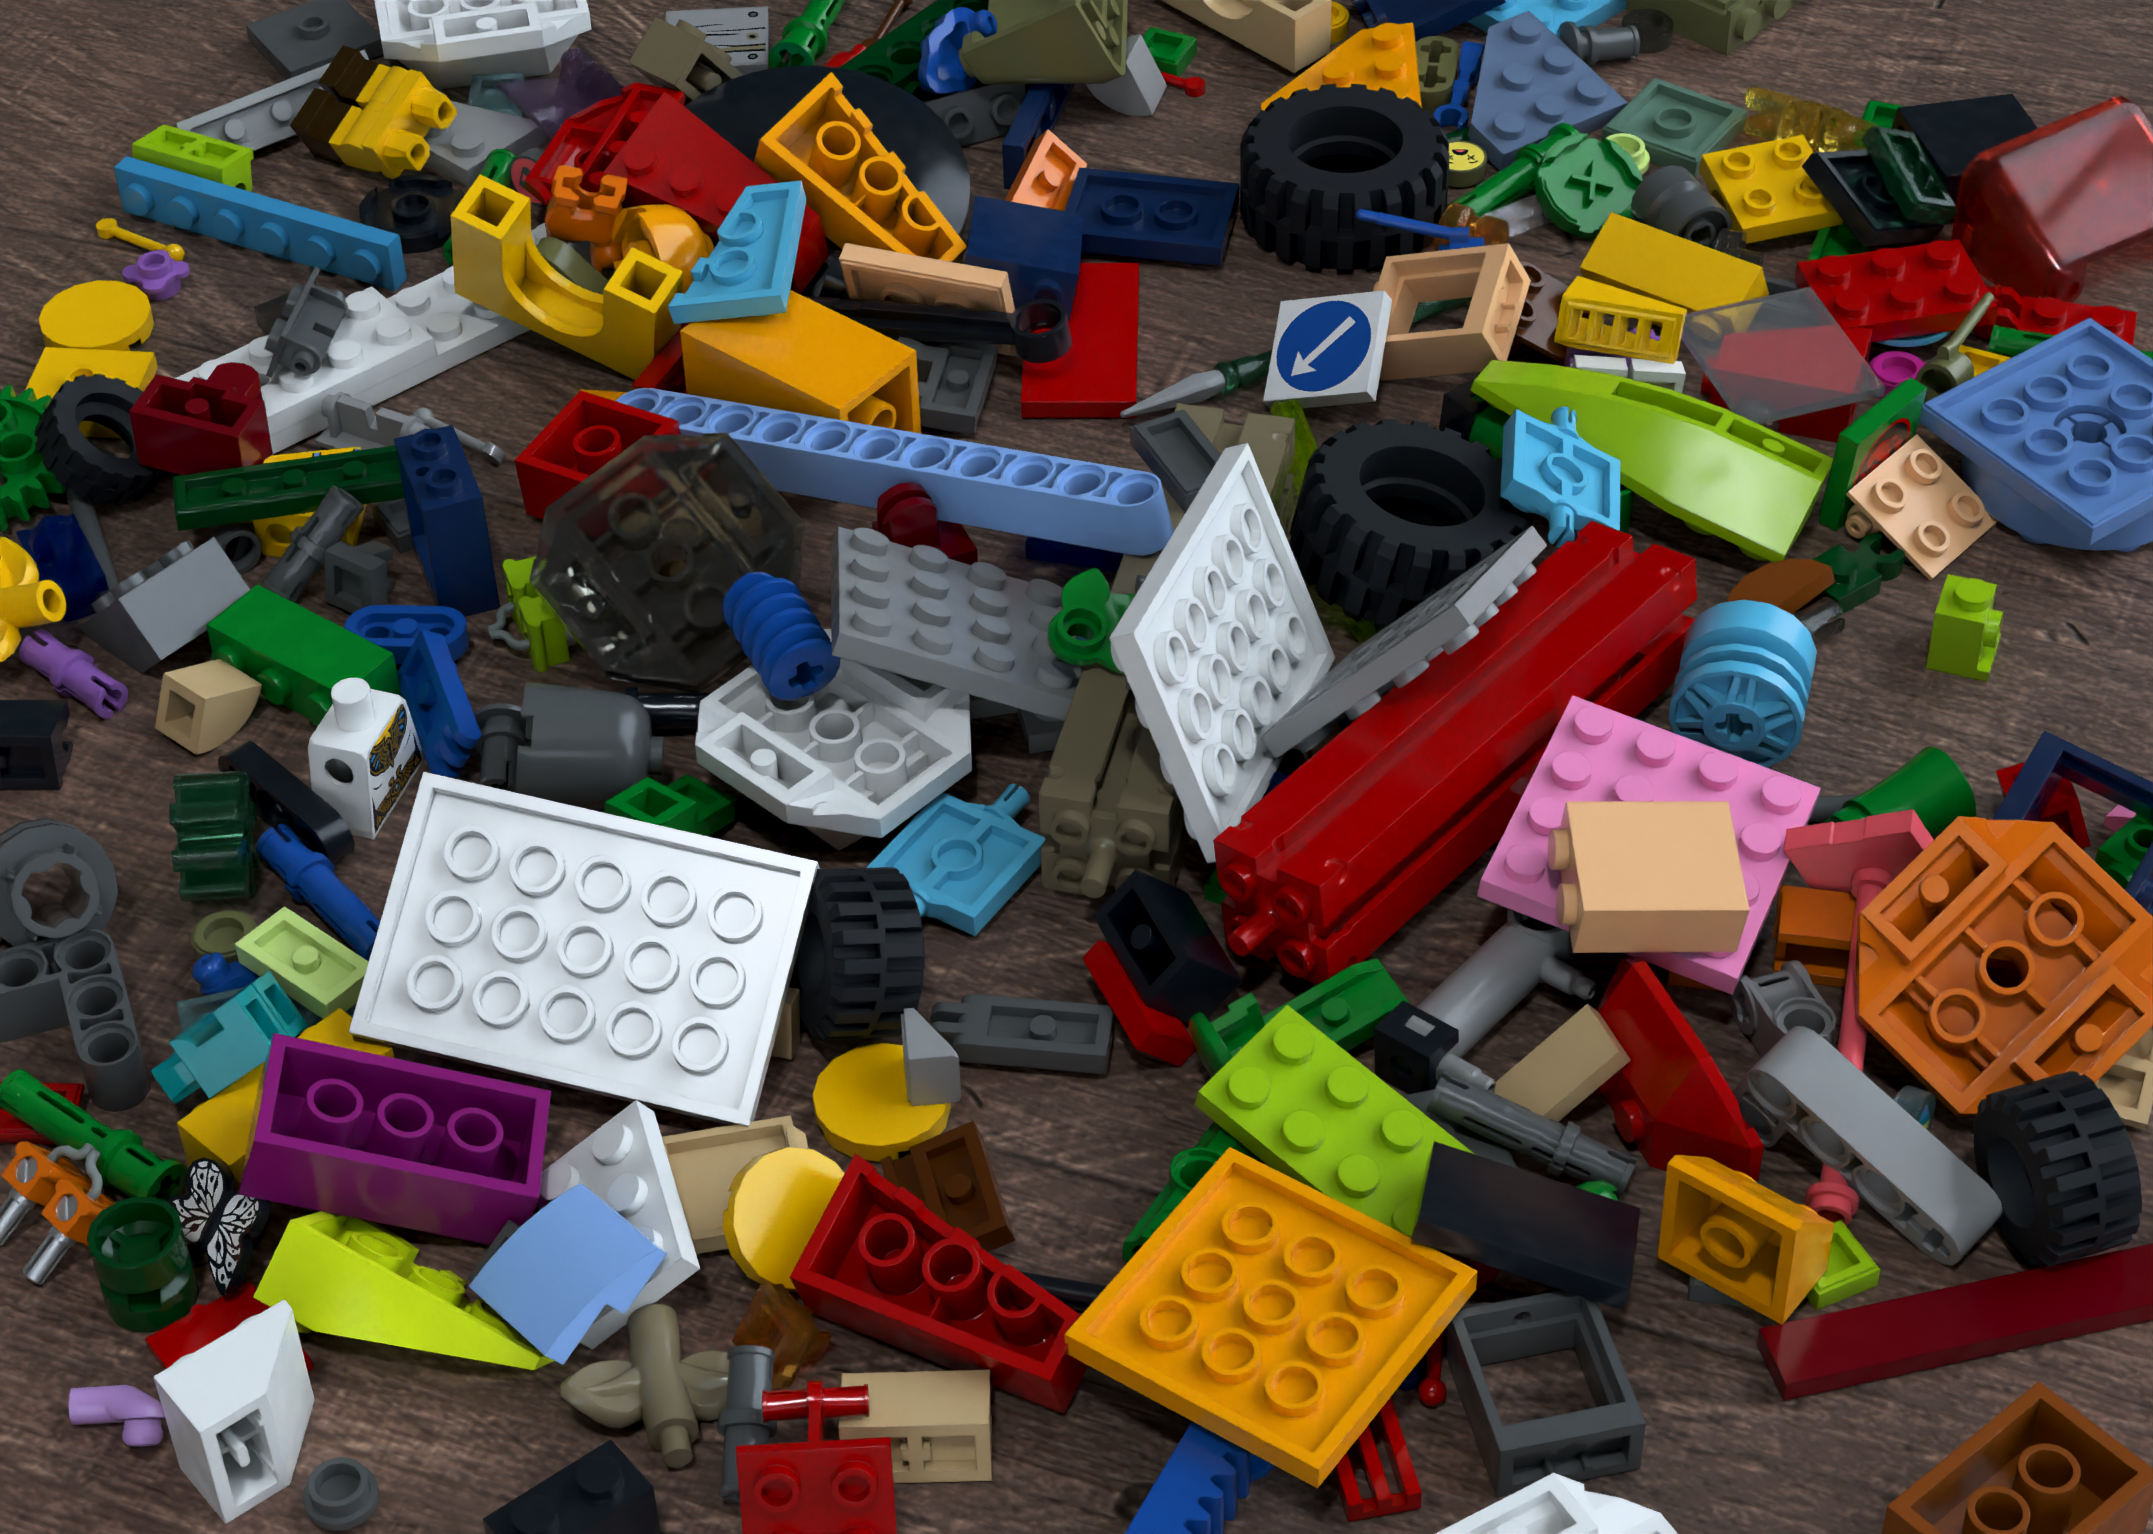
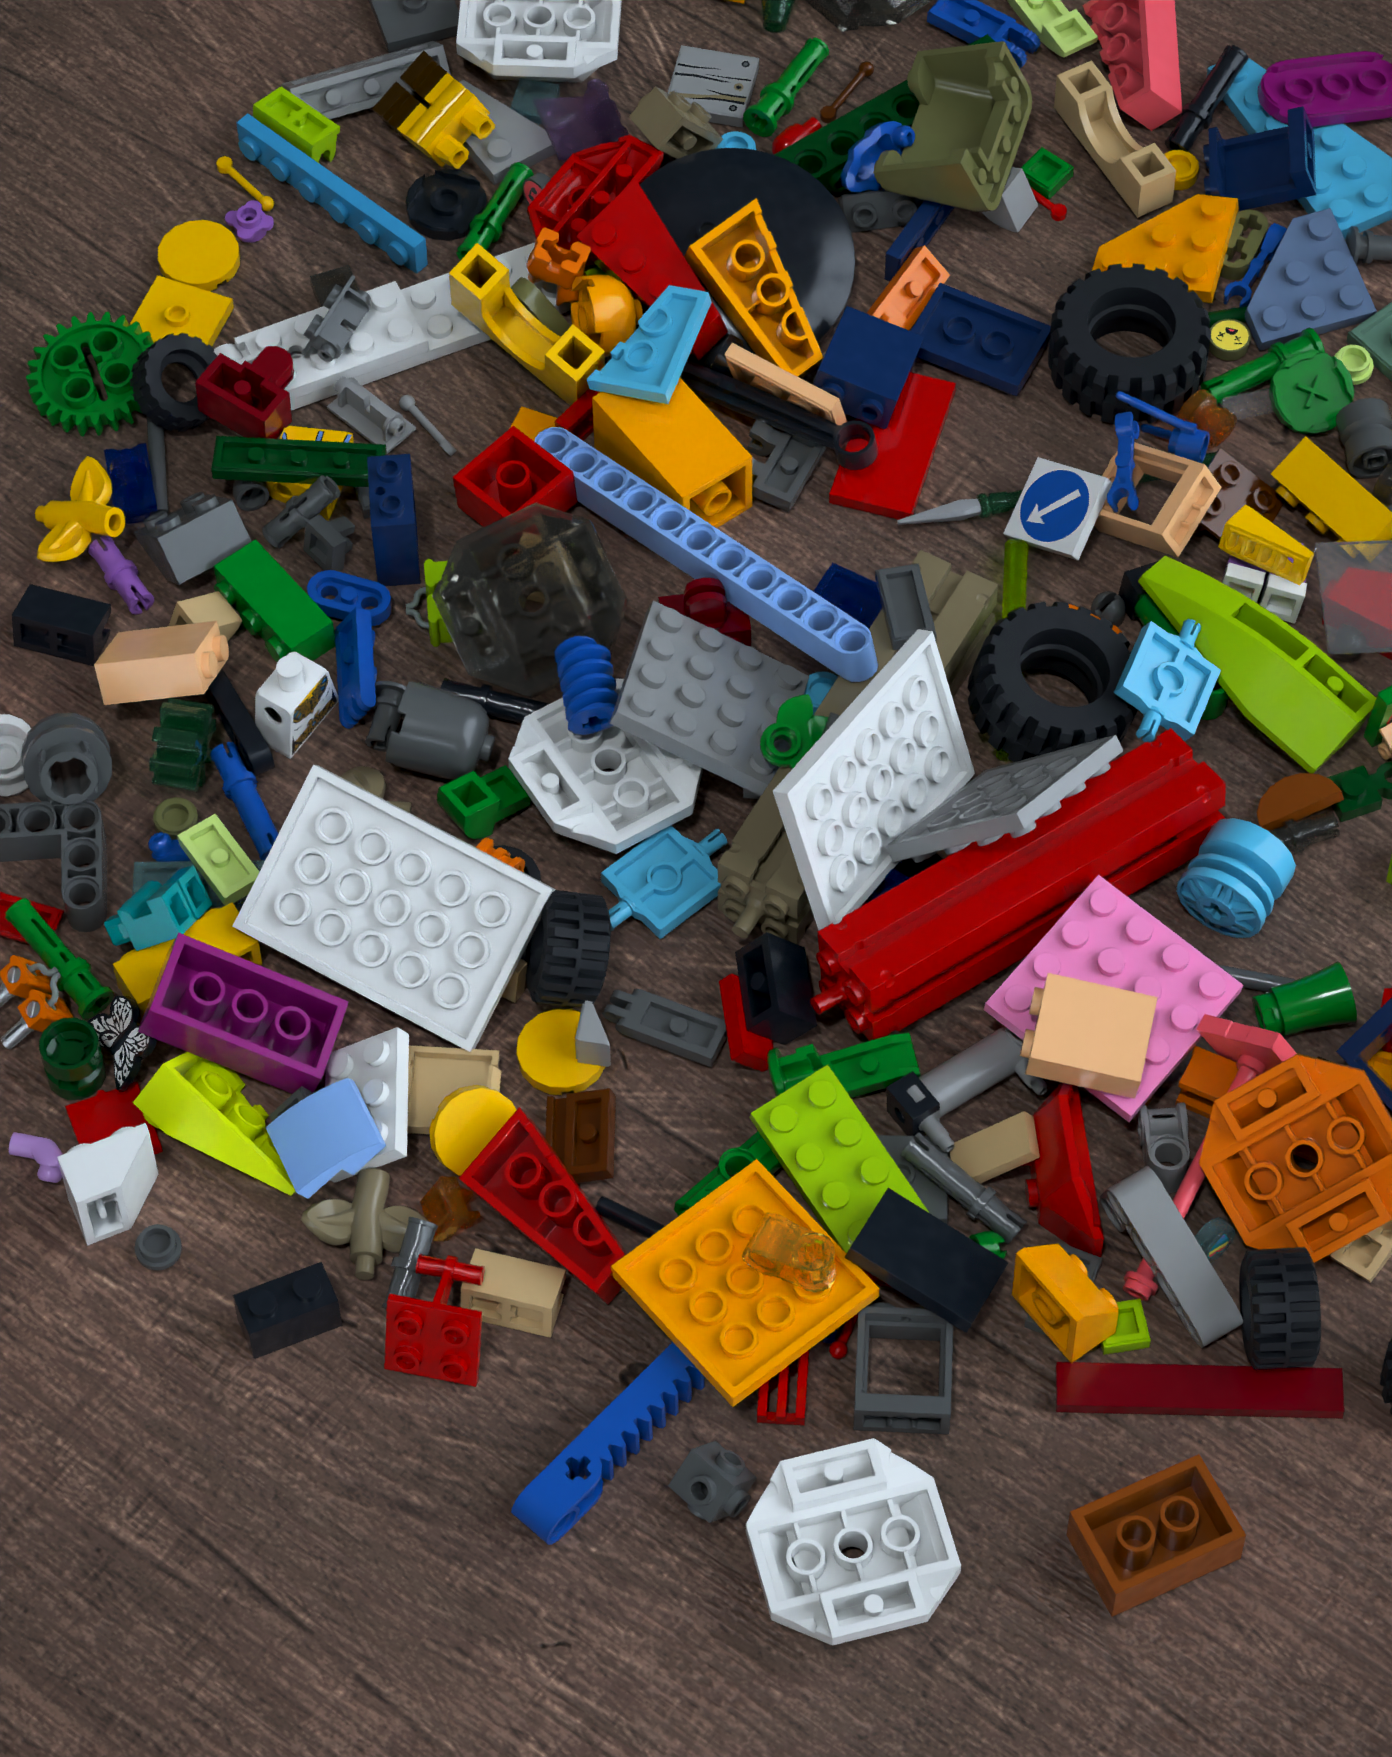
camera: 15 degrees right, 15 degrees up
(159, 742) = (161, 662): none -> light nougat brick
(1328, 1245) = (791, 1252): none -> clear yellow piece
(1407, 295) = (1123, 486): none -> blue piece

